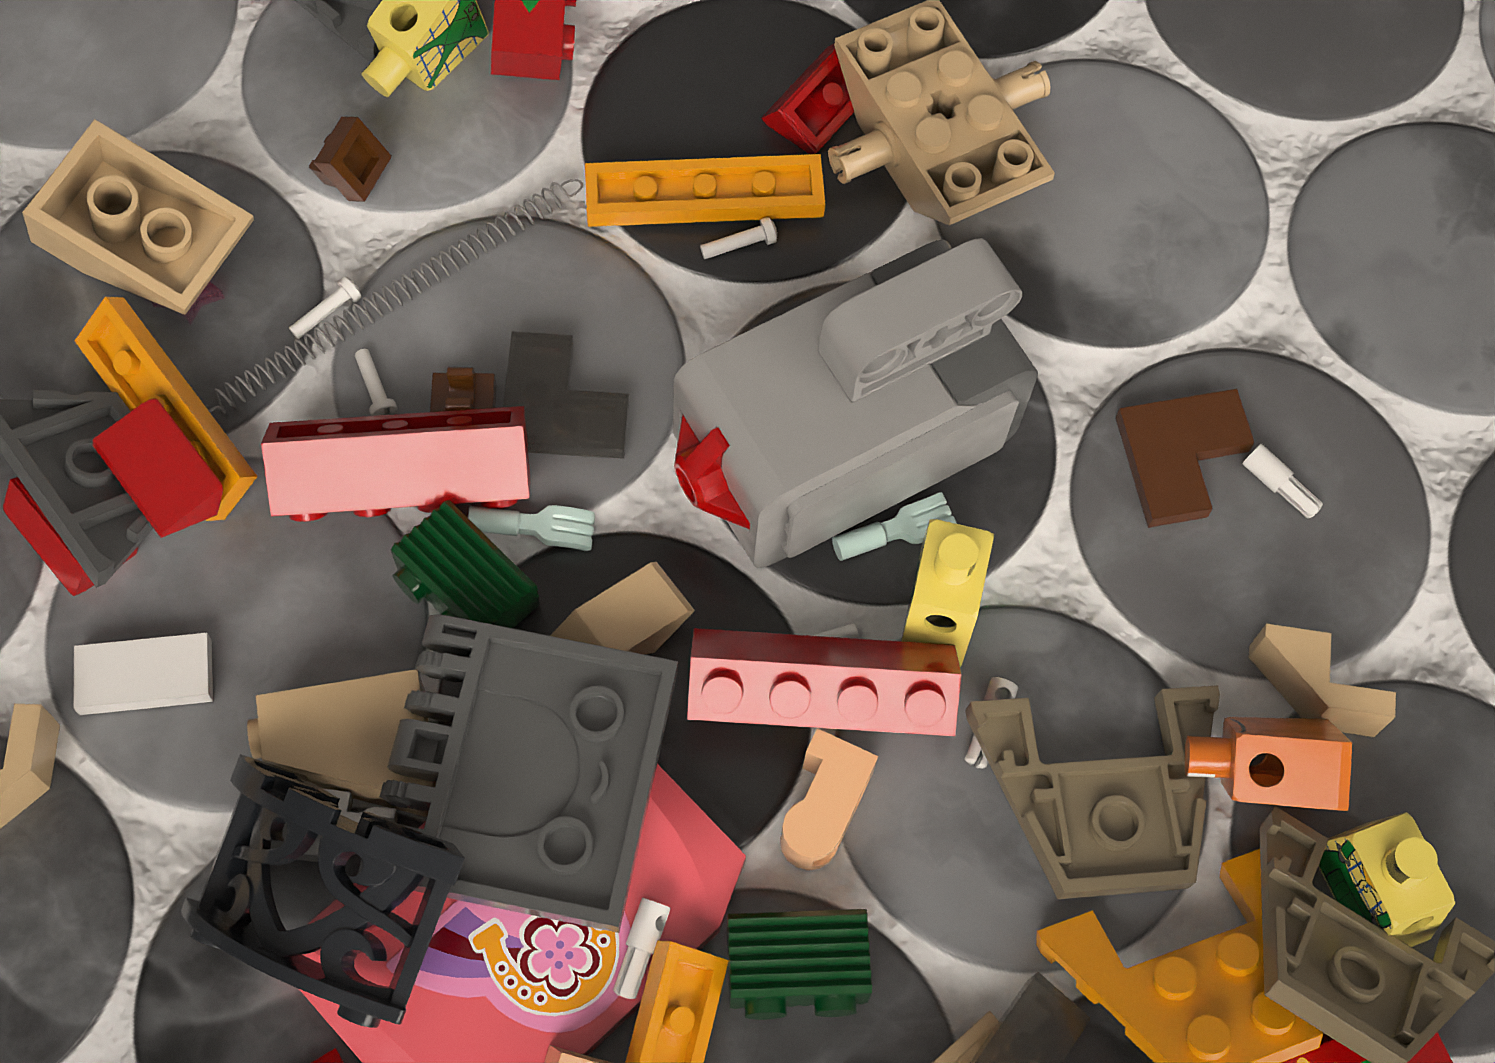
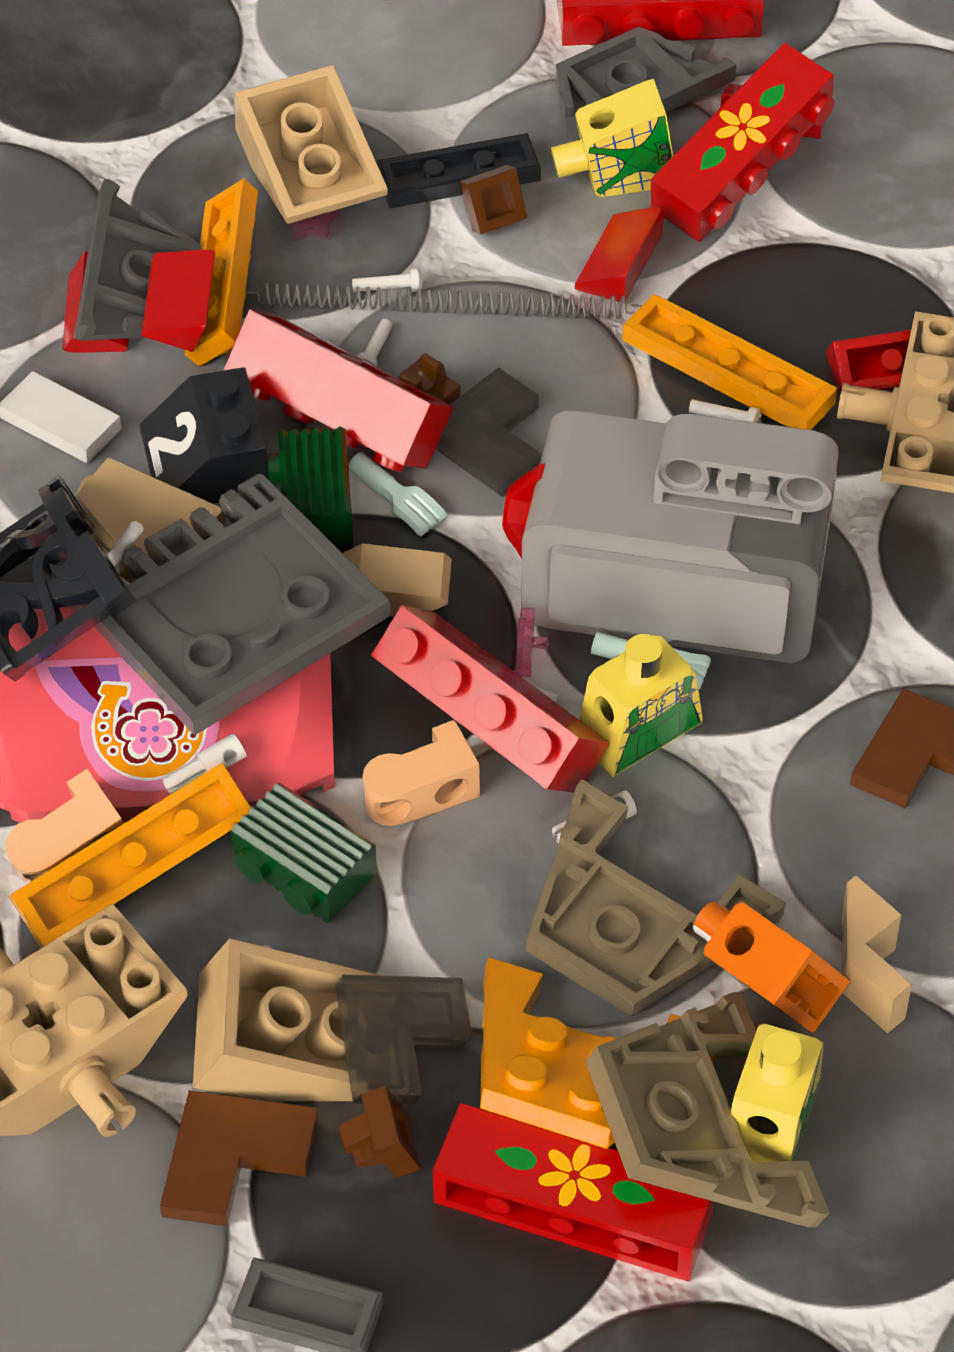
camera: 45 degrees right, 15 degrees down
(284, 144) = (439, 171): none -> black tile
(319, 601) = (206, 435): none -> black slope
(362, 802) = (125, 542): none -> white piece
(509, 138) = (621, 253): none -> red slope
(790, 594) = (527, 642): none -> clear pink piece

